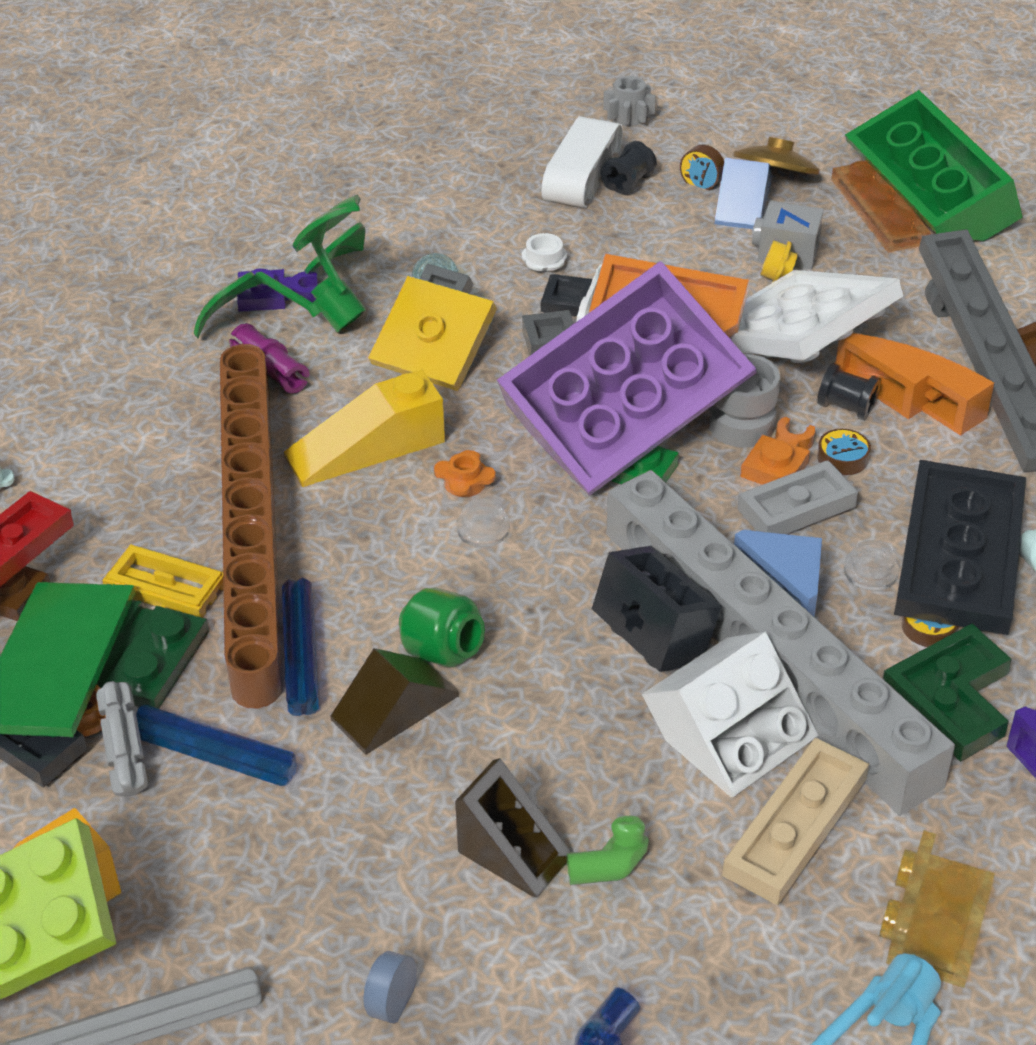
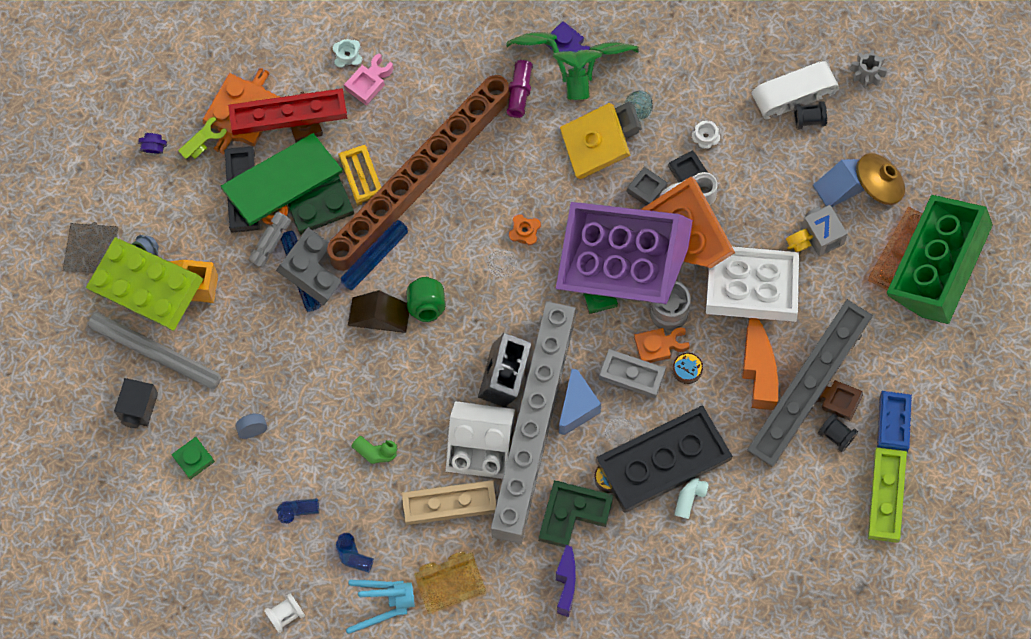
camera: 50 degrees right, 25 degrees up
(52, 475) = (367, 82): none -> bright pink plate
(213, 721) = (303, 269): none -> dark grey plate
(374, 427) = (511, 172): yellow slope -> none
(507, 831) = (348, 409): dark brown slope -> none
(702, 166) = (845, 146): tile -> none
(759, 1018) = (349, 554): none -> clear blue arm
(848, 391) = (727, 341): black bush -> none

